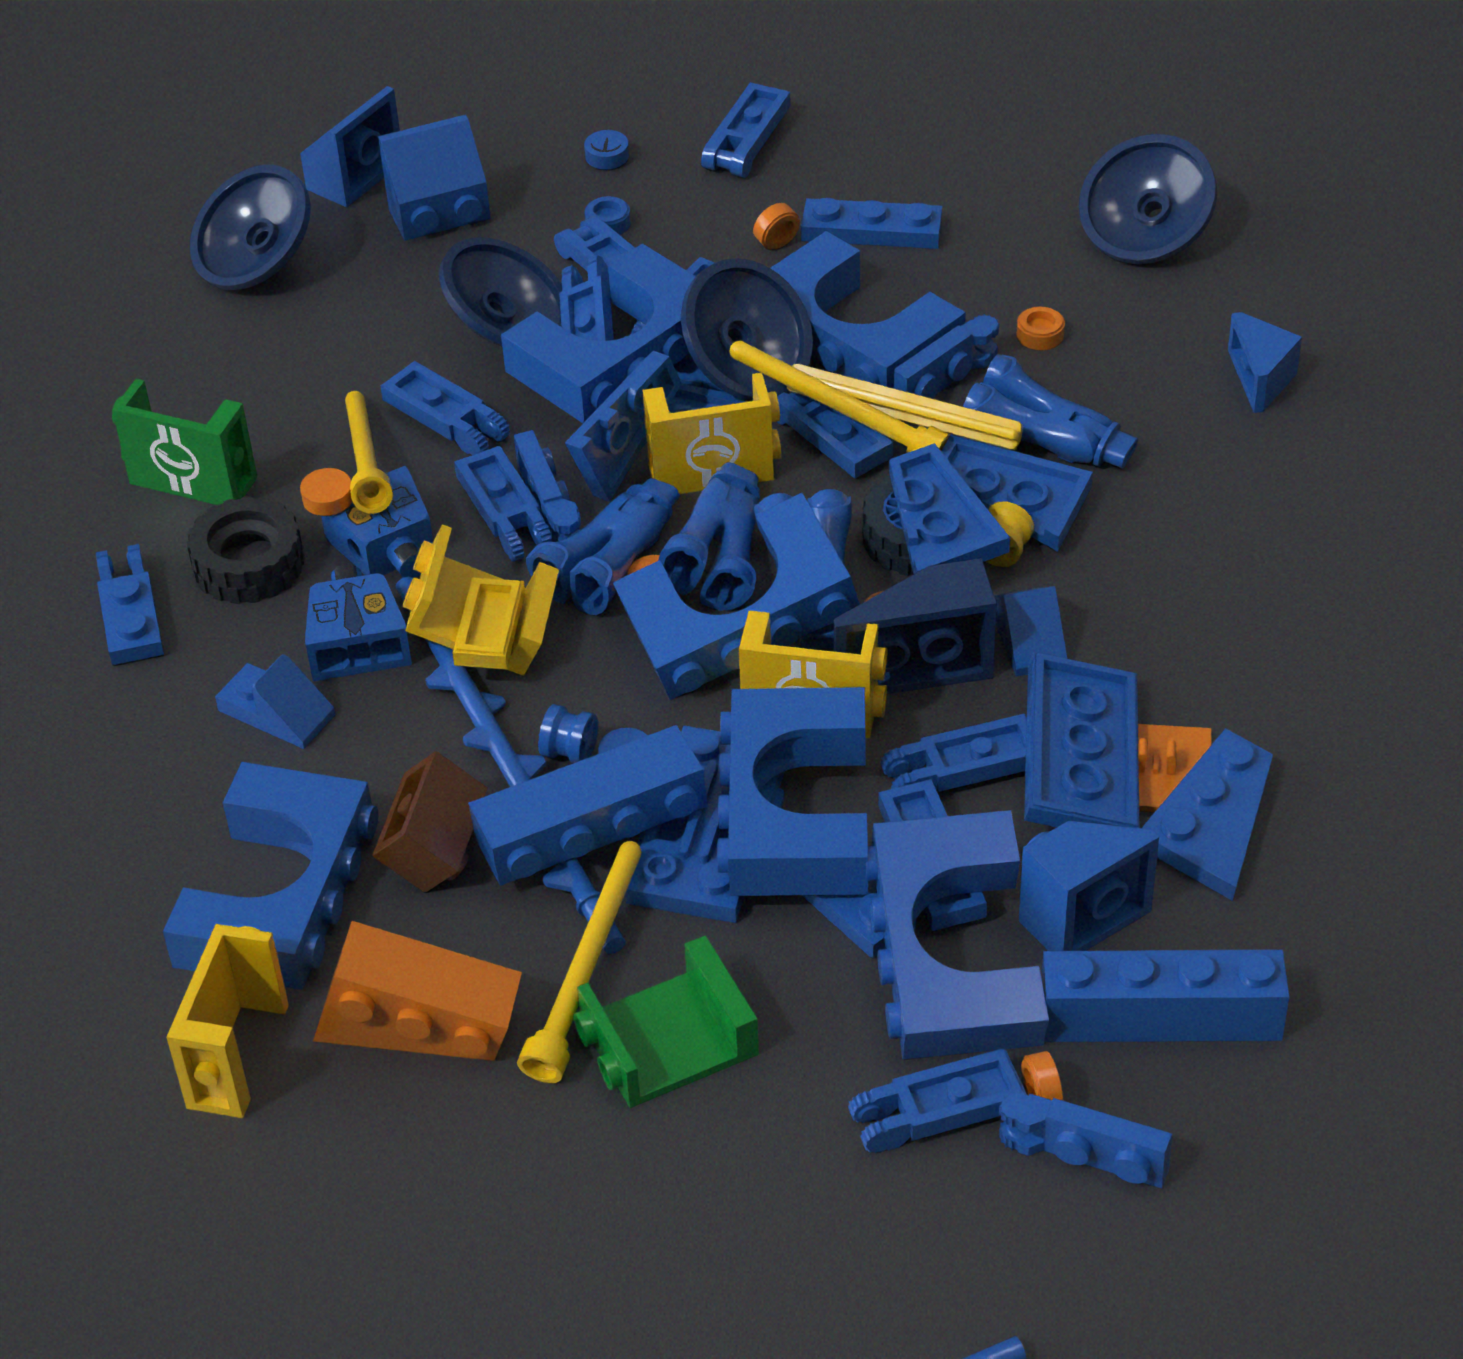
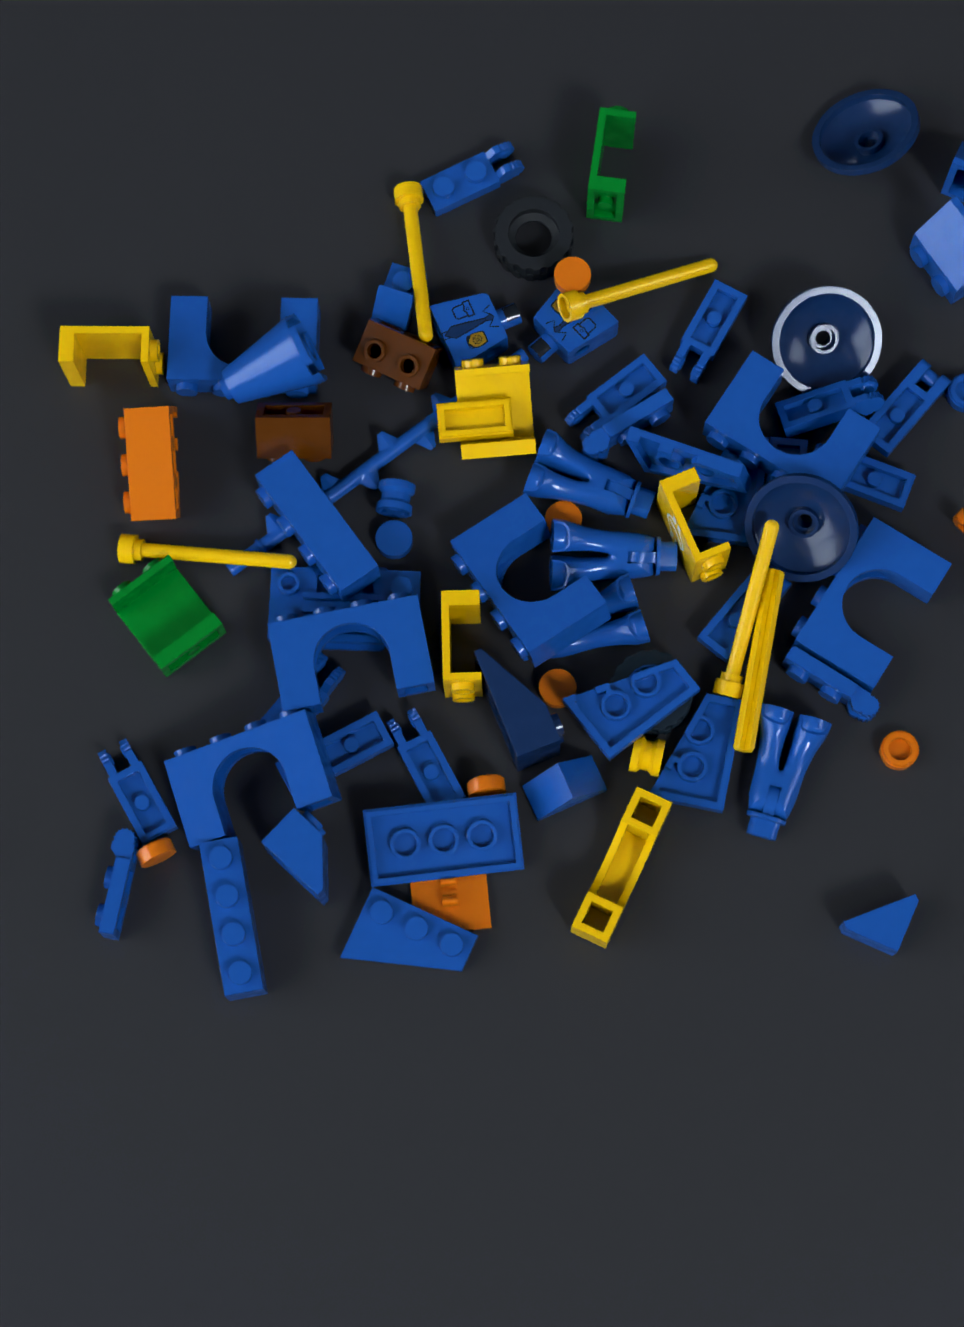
camera: 80 degrees right, 30 degrees up
(128, 665) = (409, 198): none -> yellow piece
(333, 786) = (274, 365): none -> blue cone
(359, 697) = (397, 355): none -> reddish brown brick
(1013, 693) = (486, 785): none -> orange tile
(1102, 546) = (621, 867): none -> yellow arch

